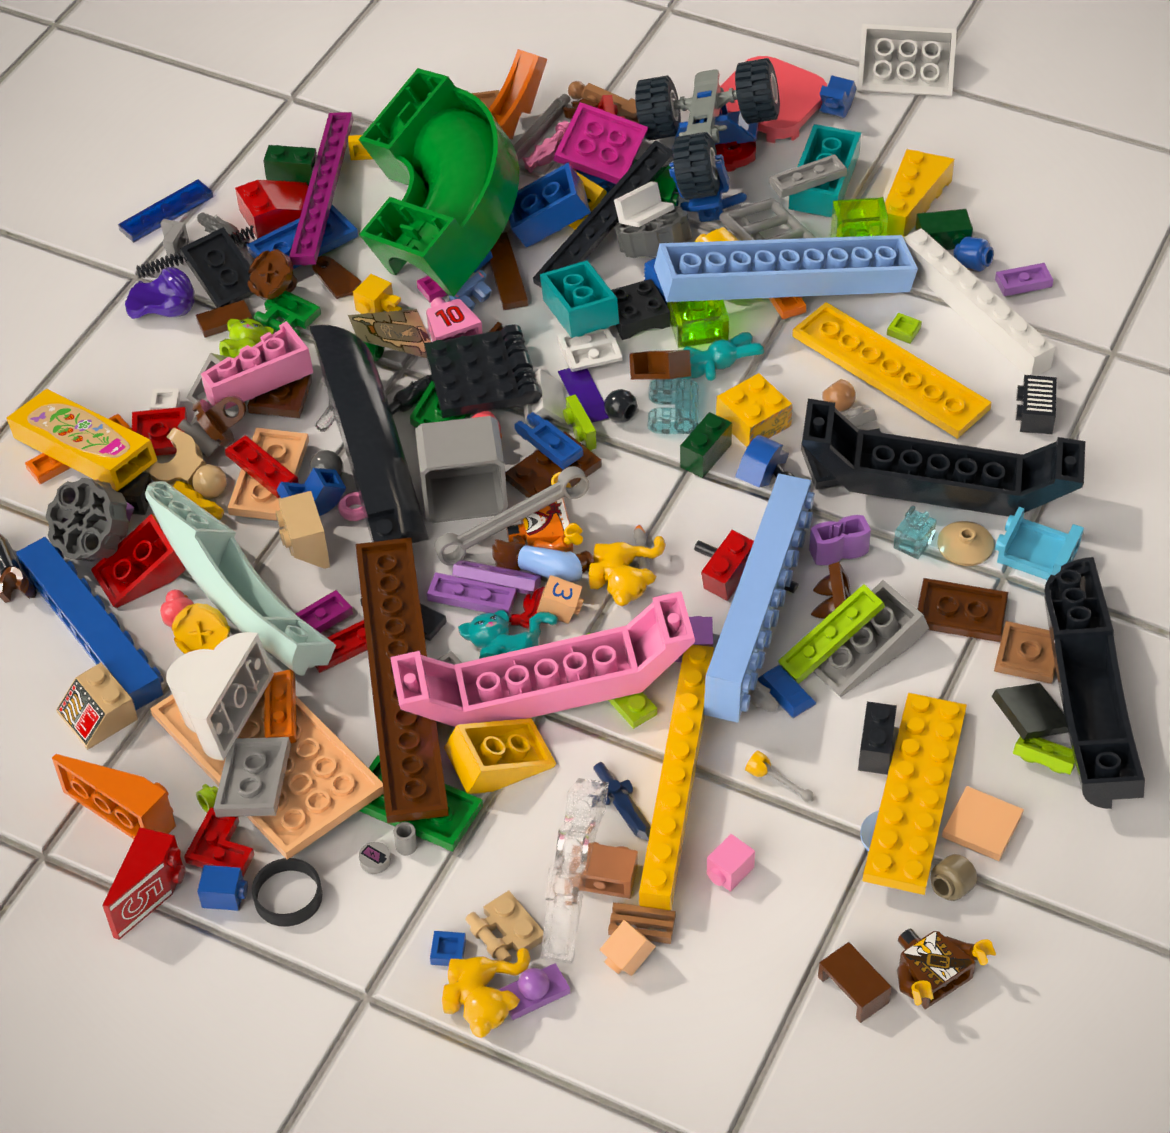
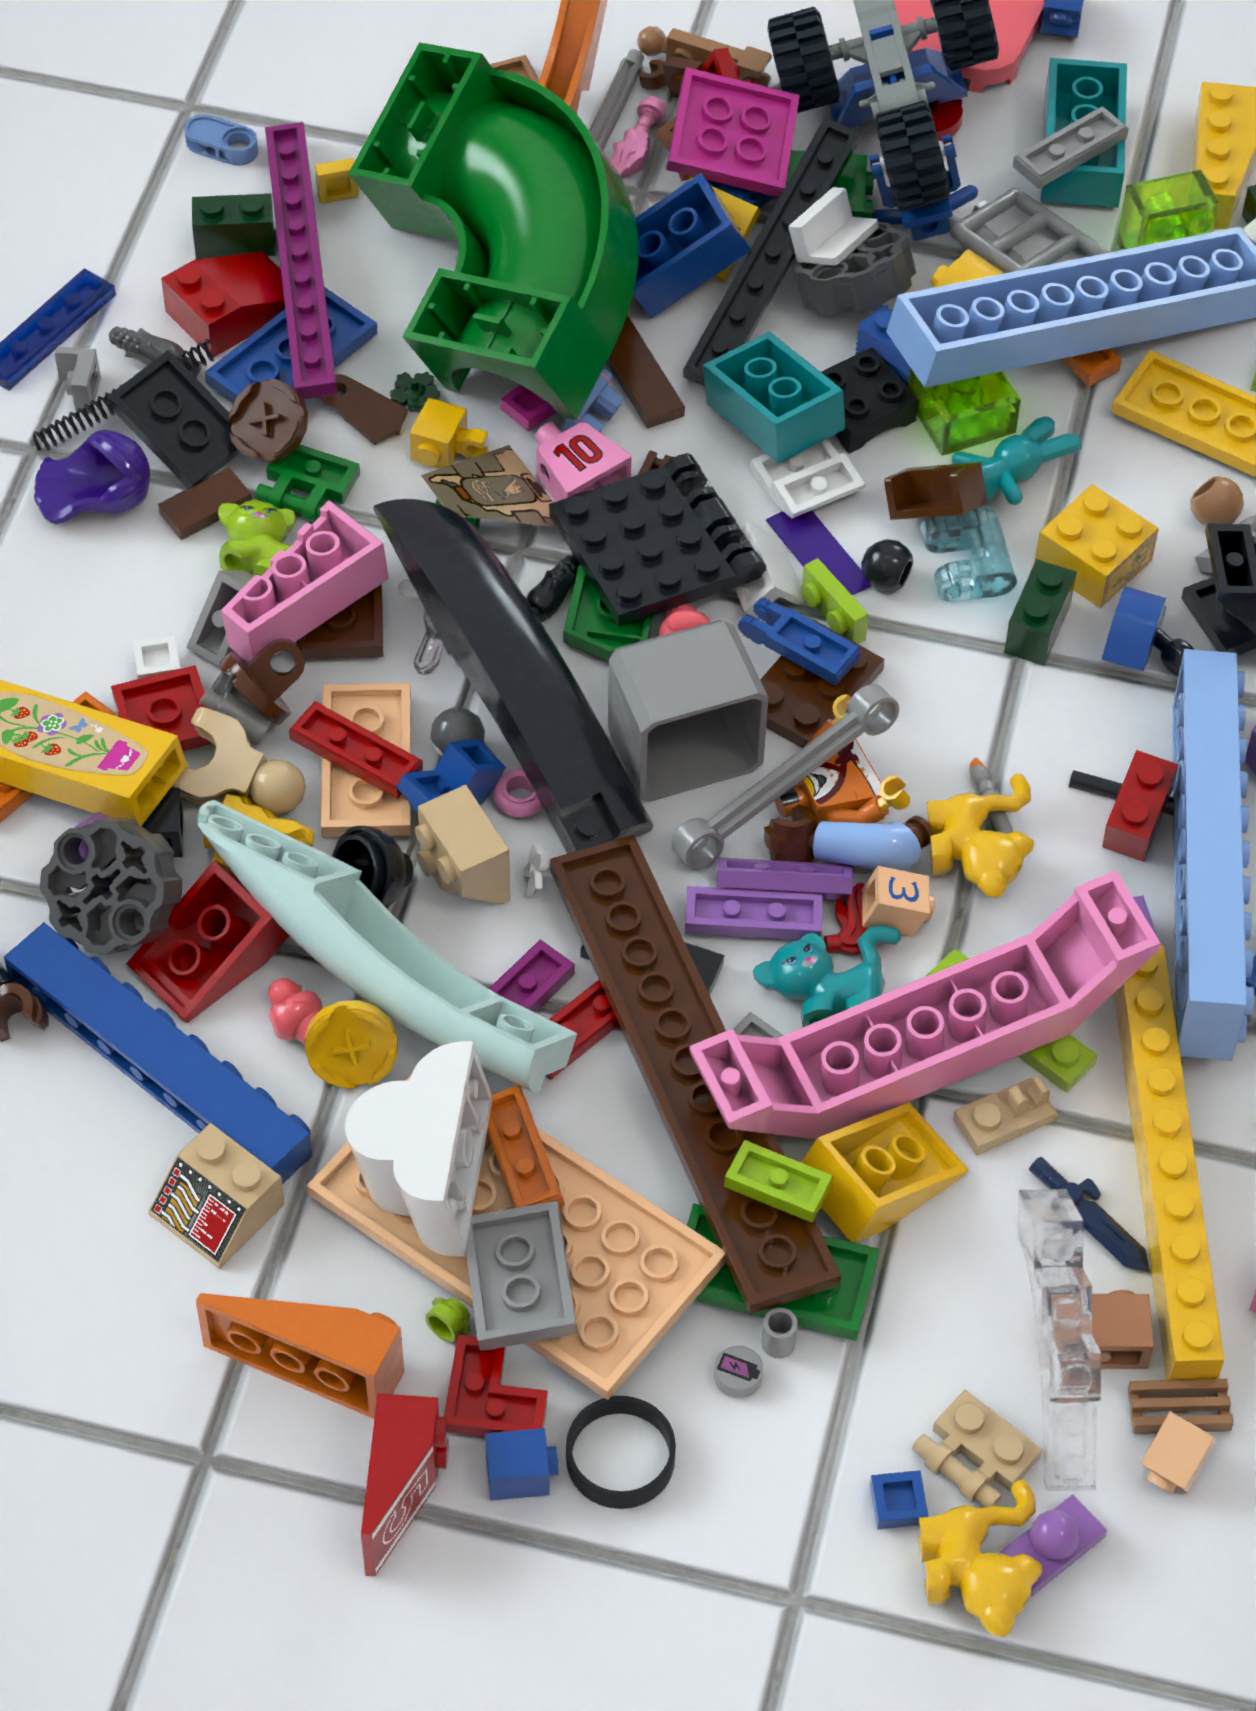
camera: 15 degrees left, 5 degrees up
(251, 532) = (379, 858): none -> black piece
(298, 115) = (213, 137): none -> medium blue piece
(347, 550) = (535, 869): none -> white plant
(367, 268) = (414, 390): none -> dark green plant
(425, 746) = (778, 1181): none -> lime plate
(589, 735) = (1005, 1115): none -> tan plate

